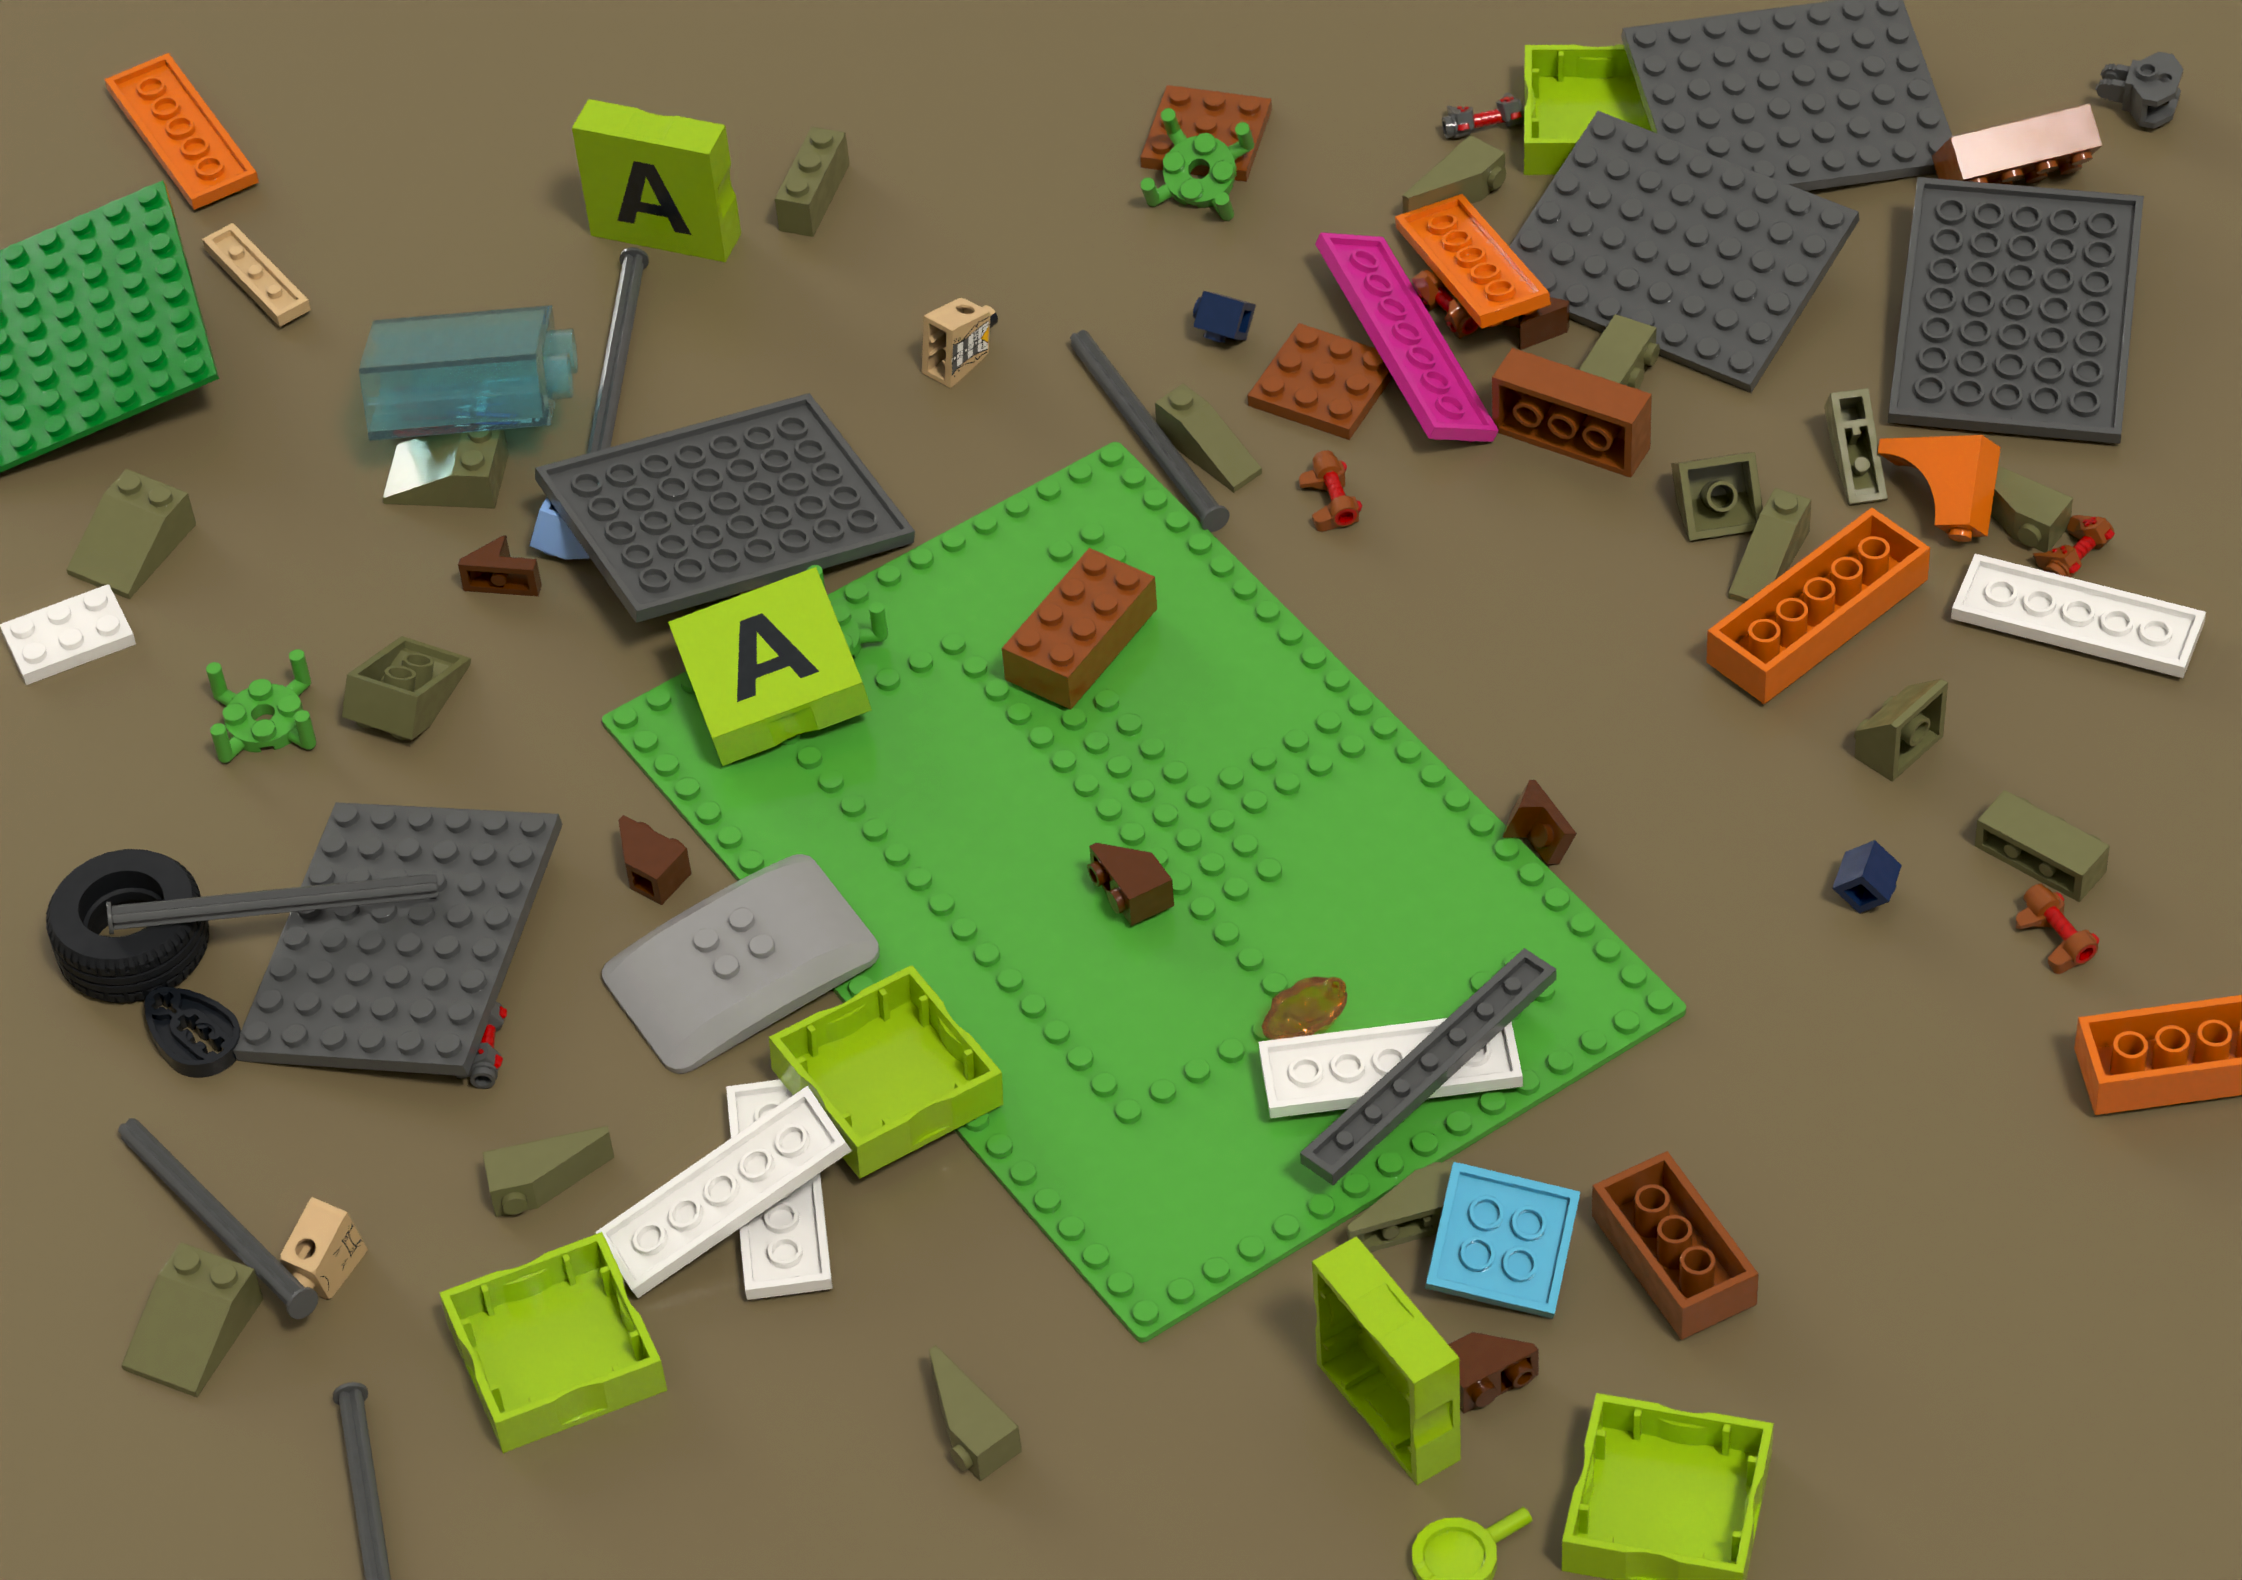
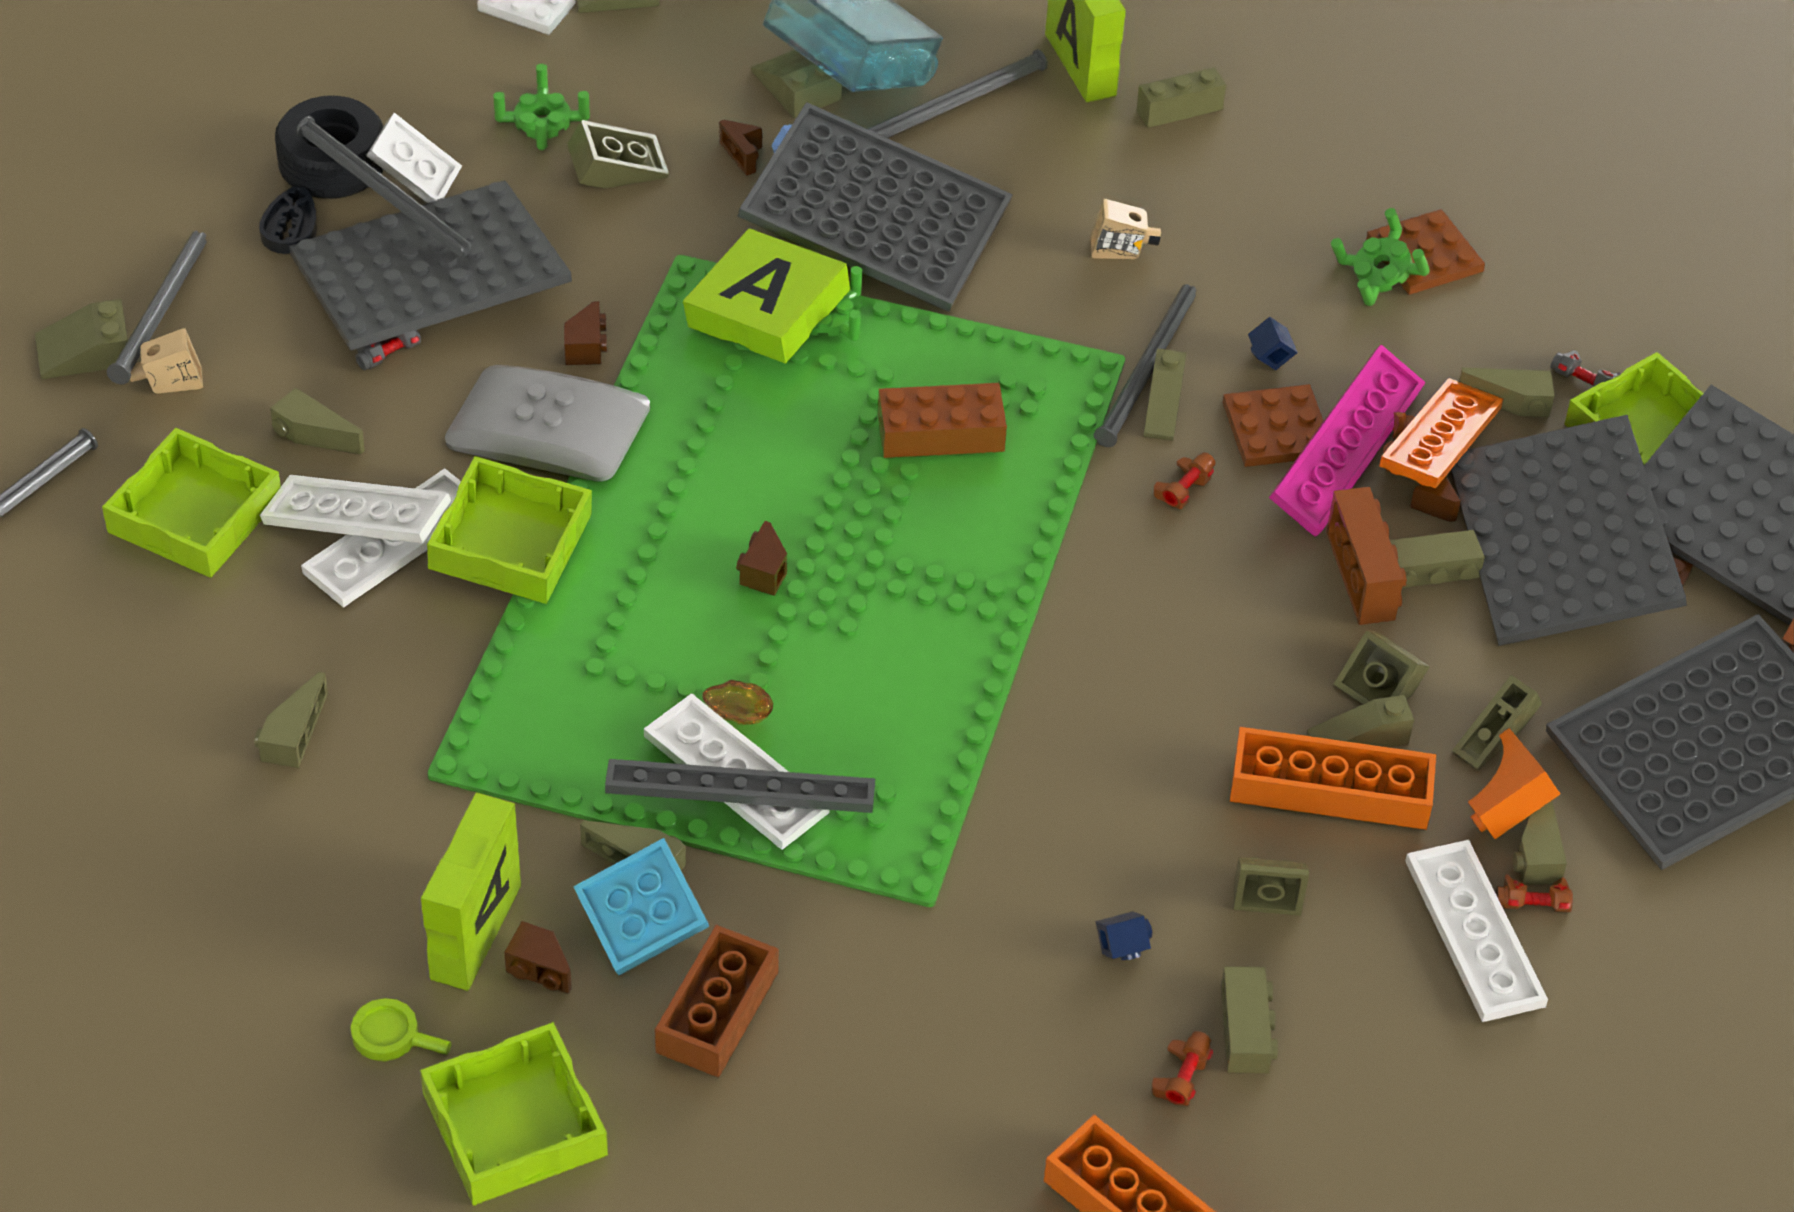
camera: 45 degrees right, 0 degrees up
(236, 859) = (413, 160): none -> white plate
(1540, 823) = (1008, 730): reddish brown slope -> none

